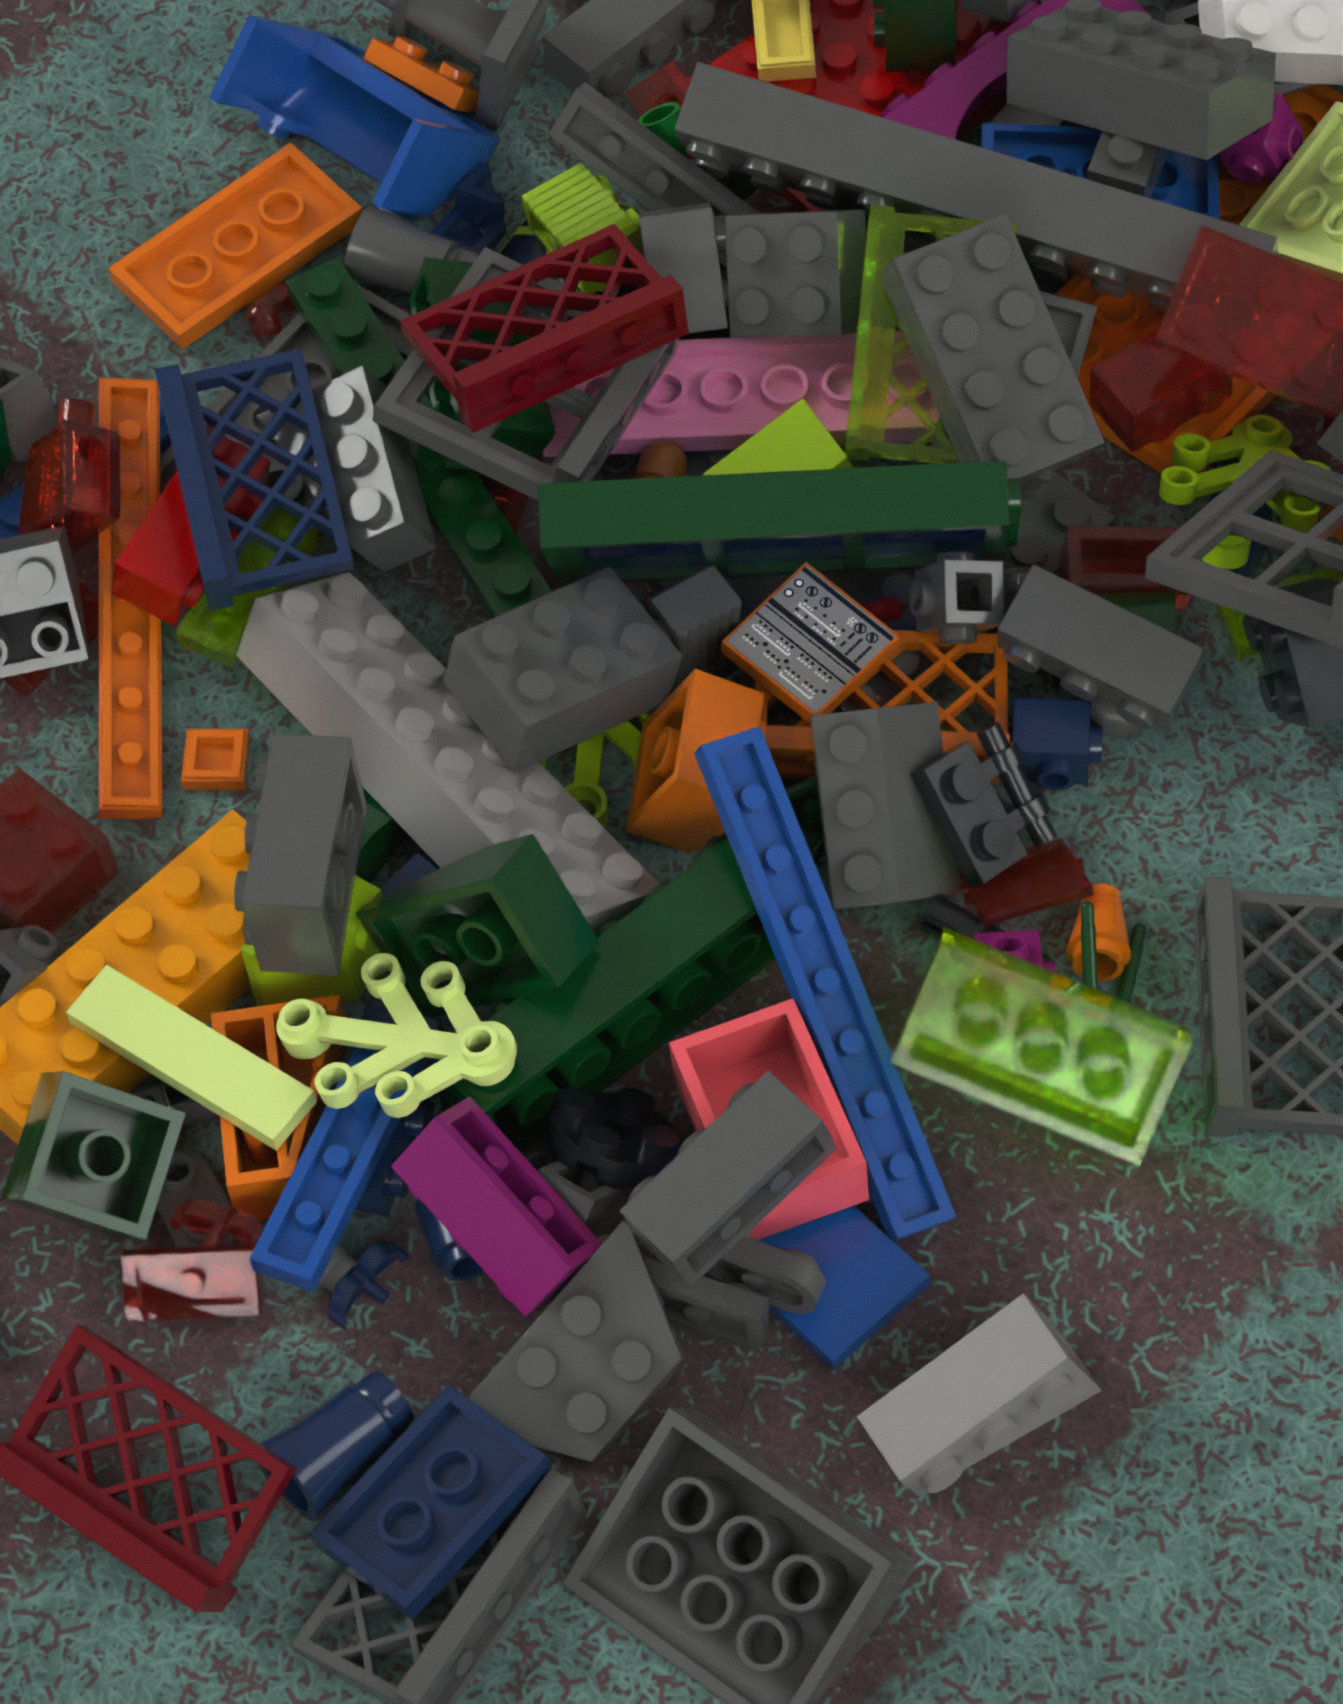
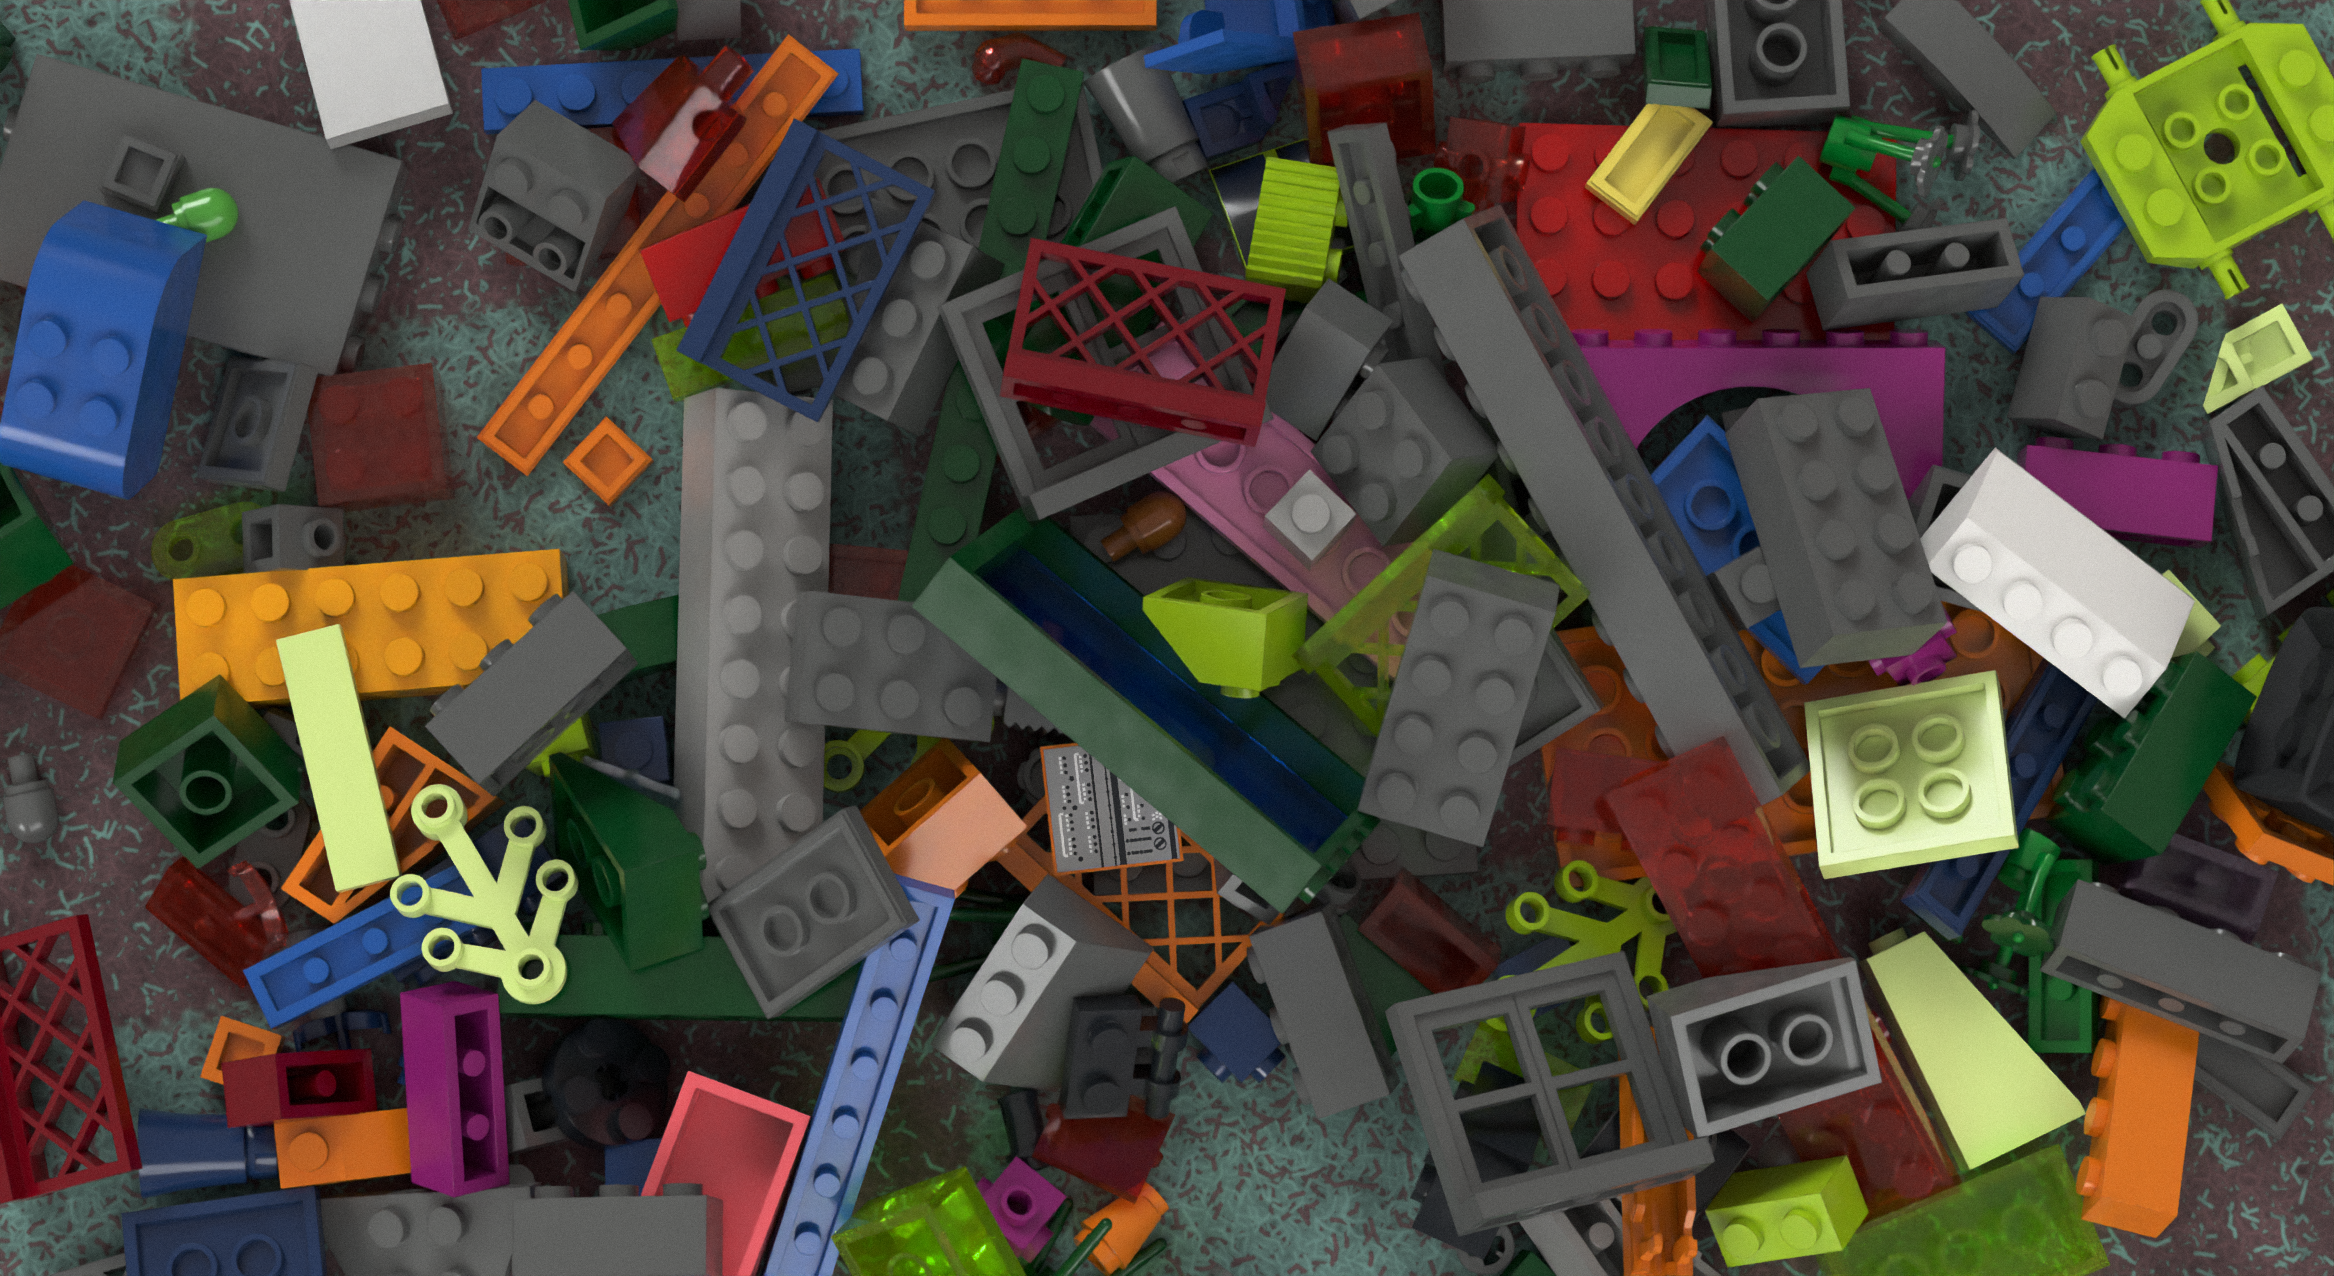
camera: 30 degrees right, 25 degrees up
(304, 1358) = (236, 1042): none -> orange plate
(370, 1318) = (298, 1086): none -> dark red brick
(454, 1342) = (343, 1148): none -> orange slope
(524, 106) = (1366, 77): none -> clear red brick
(660, 830) = (812, 912): none -> dark grey tile
(771, 363) = (1309, 519): none -> light grey brick

